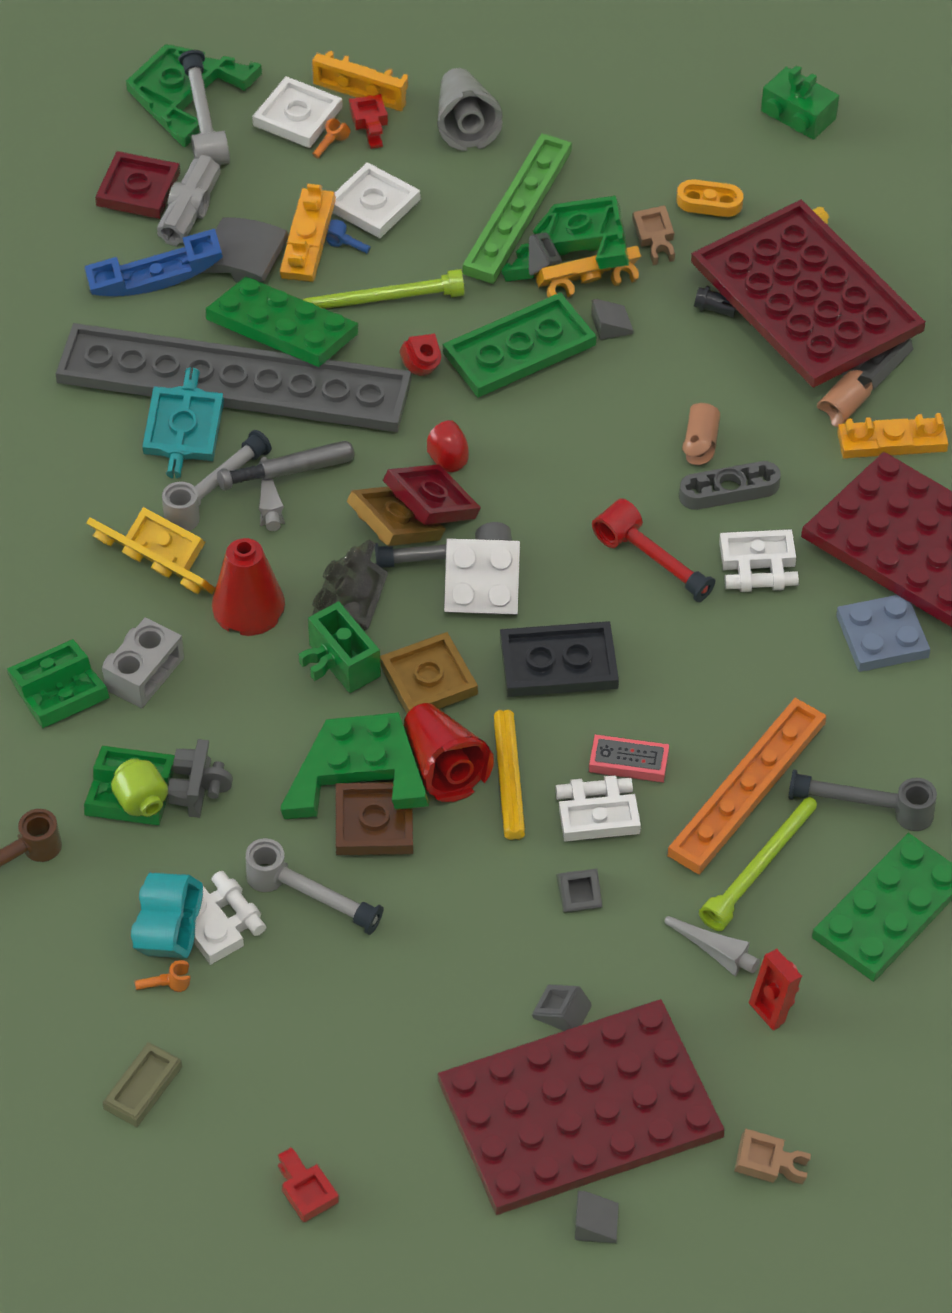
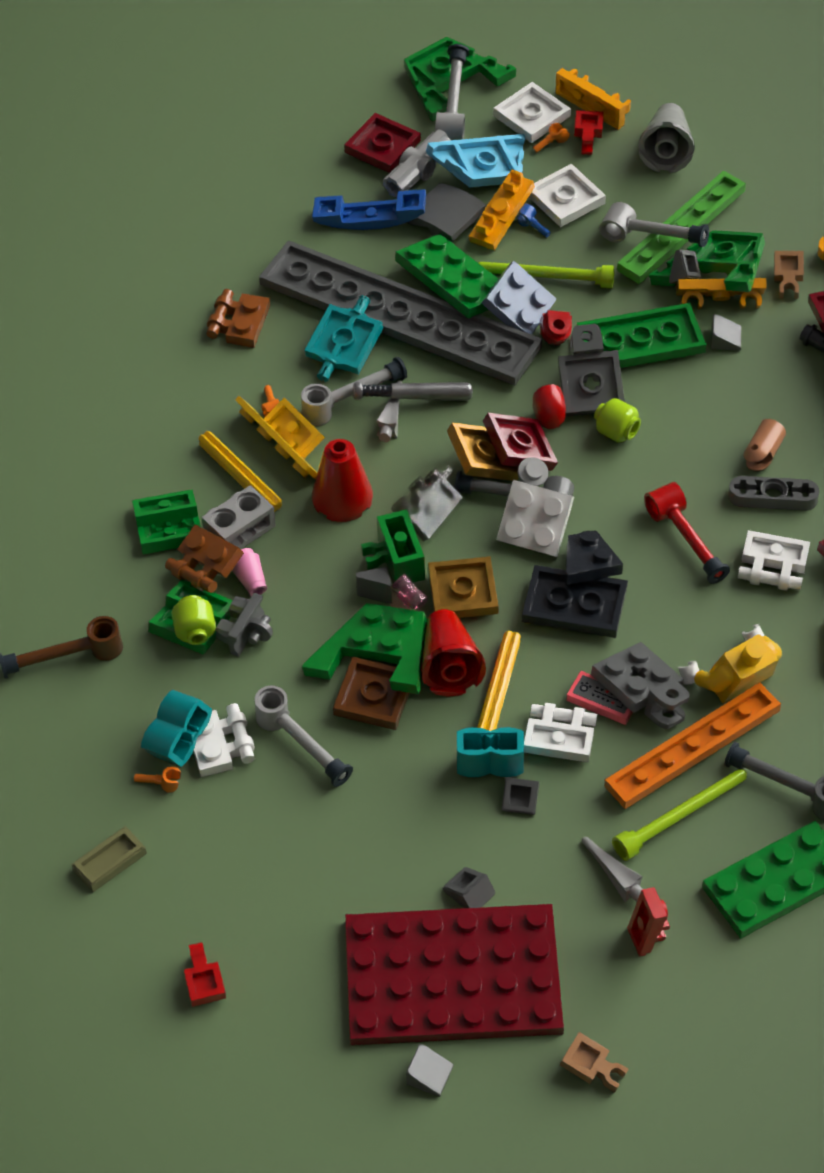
camera: 20 degrees right, 0 degrees up
(58, 427) = (247, 318): none -> dark orange plate
(112, 600) = (237, 468): none -> yellow axle
(122, 704) = (209, 551): none -> dark orange plate
(126, 518) = (271, 401): none -> orange hand
(176, 716) = (250, 572): none -> bright pink cone
(262, 179) = (480, 160): none -> medium azure wing
(329, 696) = (374, 585): none -> dark grey slope
(368, 331) = (518, 299): none -> plate
(374, 697) = (408, 593): none -> clear pink plate
(447, 216) = (622, 220): none -> light grey piece
(460, 524) = (532, 471): none -> light grey plate
(476, 383) = (589, 361): none -> dark grey plate
(530, 444) = (617, 420): none -> lime head
(530, 850) = (490, 752): none -> teal brick
(559, 606) = (590, 558): none -> black wing
(682, 731) = (654, 691): none -> dark grey plate
(767, 690) = (737, 668): none -> yellow torso

